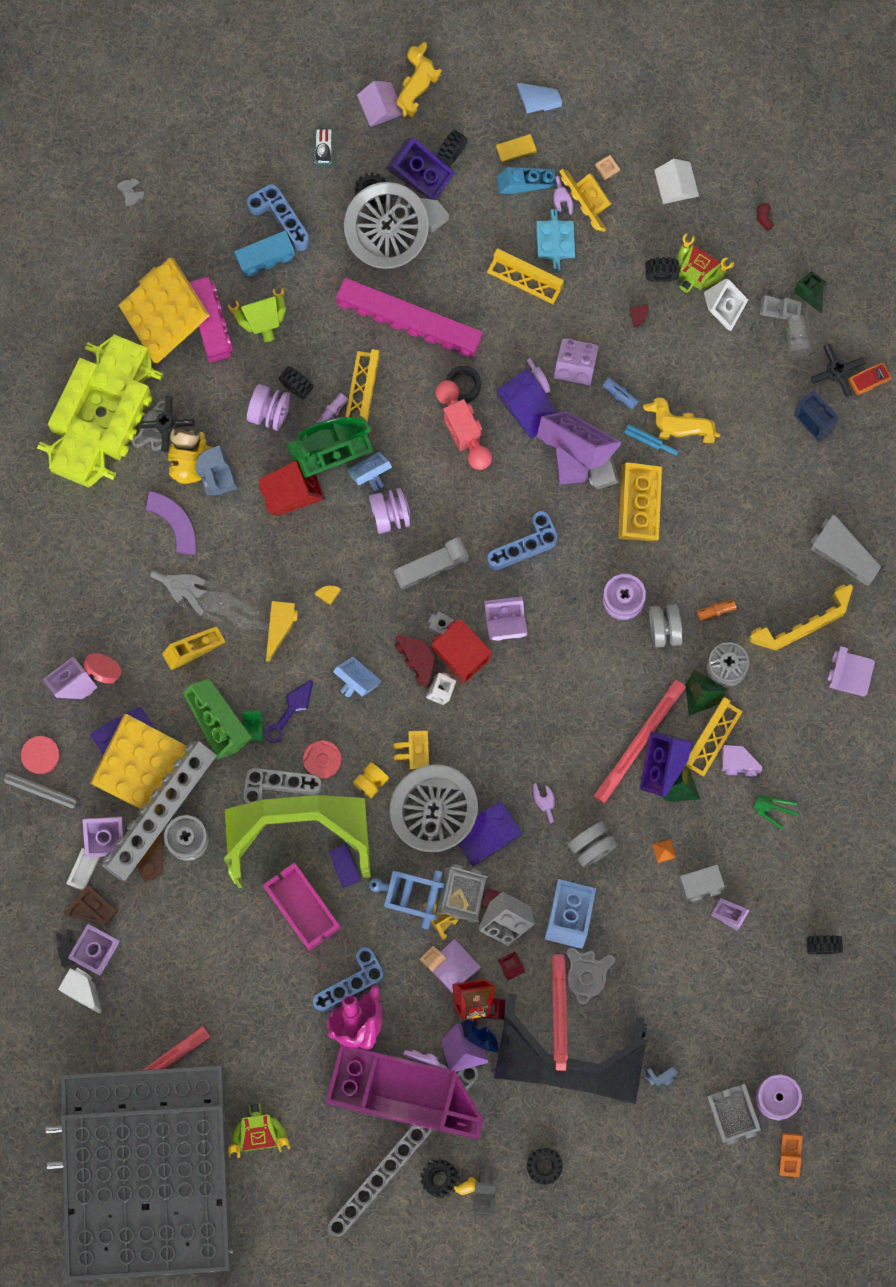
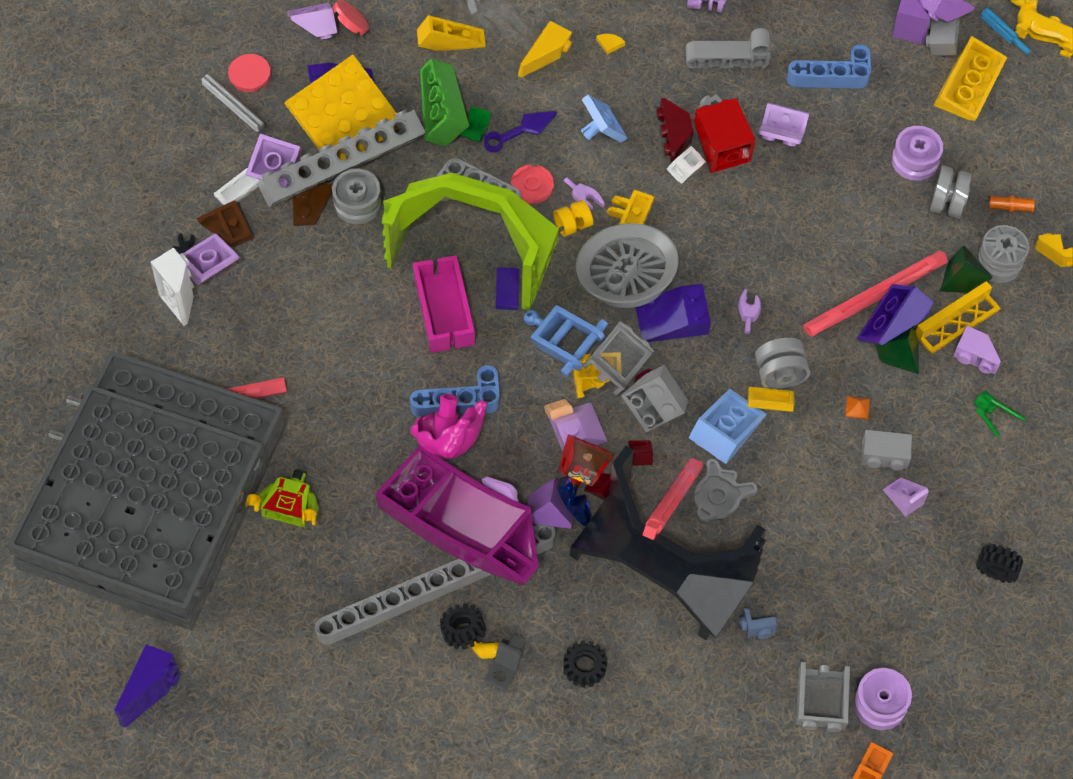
camera: 20 degrees right, 15 degrees down
(367, 749) = (584, 192): none -> lavender hand
(594, 875) = (770, 399): none -> yellow tile

